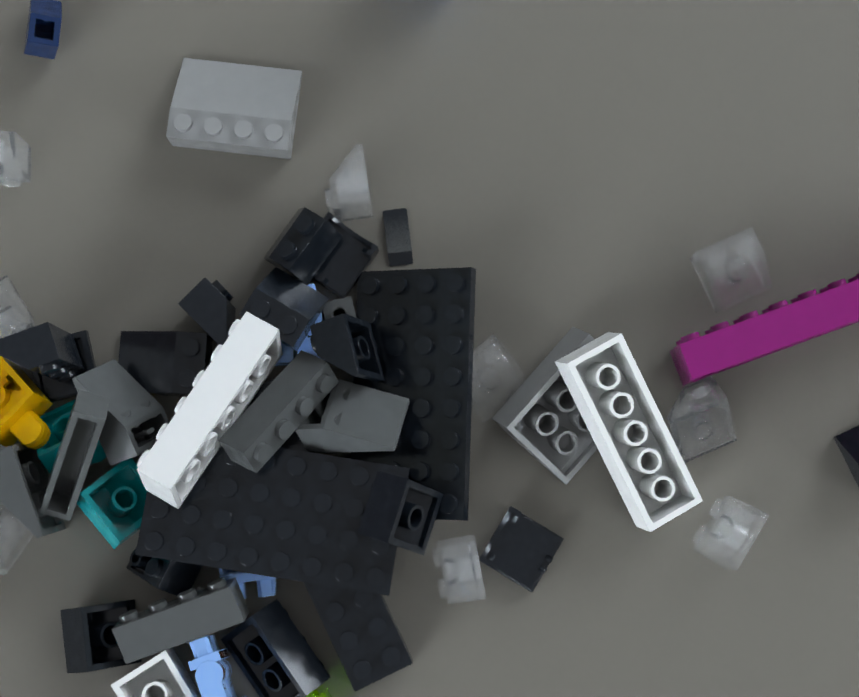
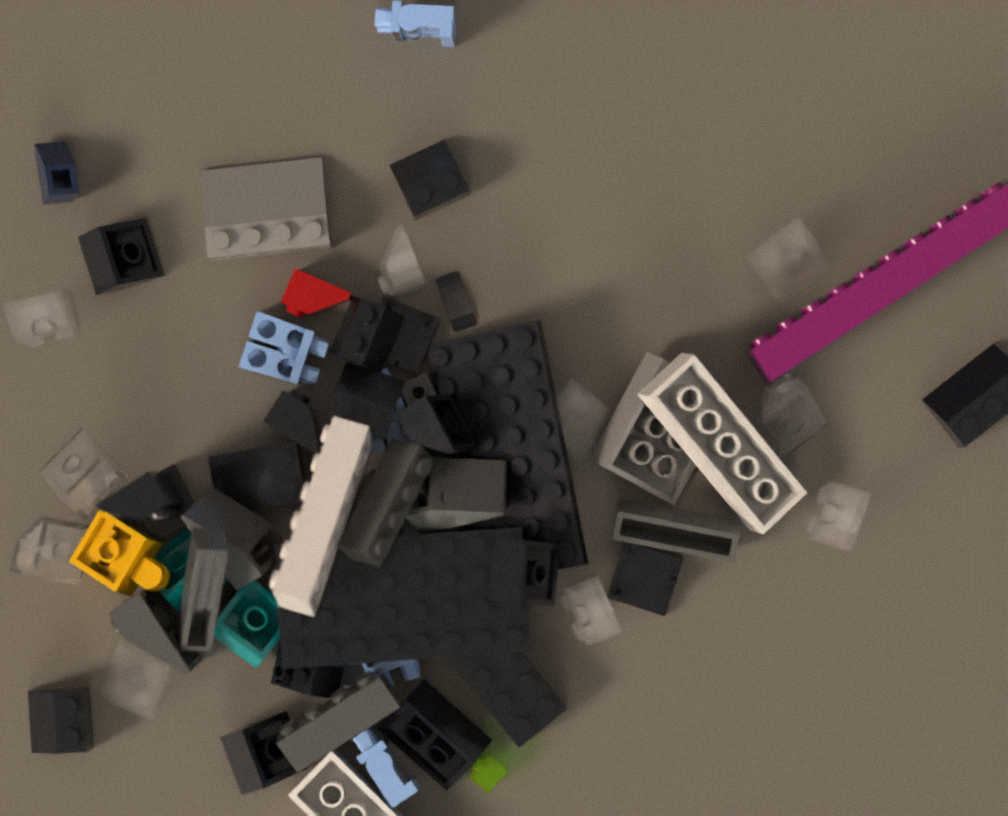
camera: 15 degrees left, 5 degrees up
(85, 118) = (120, 256): none -> black slope
(226, 250) = (291, 354): none -> light blue hips
(259, 198) = (312, 295): none -> red slope
(400, 115) = (430, 179): none -> black slope
(563, 509) = (676, 530): none -> dark grey brick

